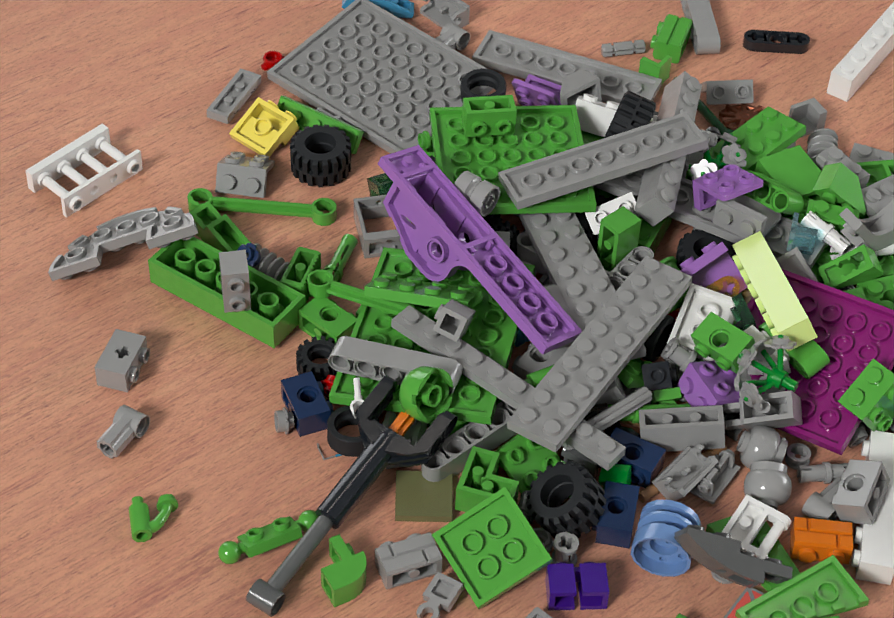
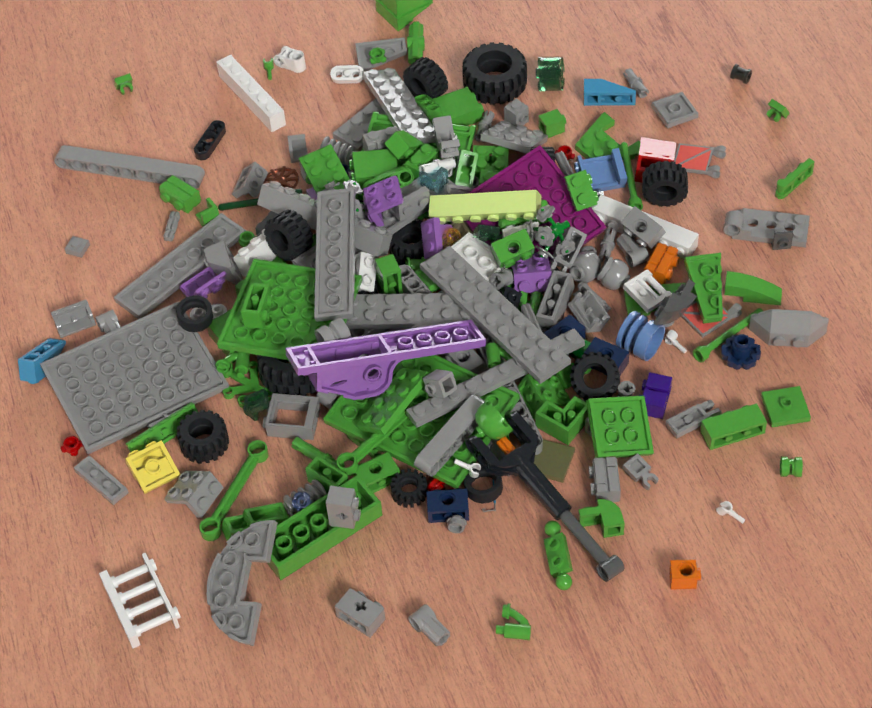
camera: 65 degrees left, 5 degrees up
(693, 585) = (671, 338): none -> white hand

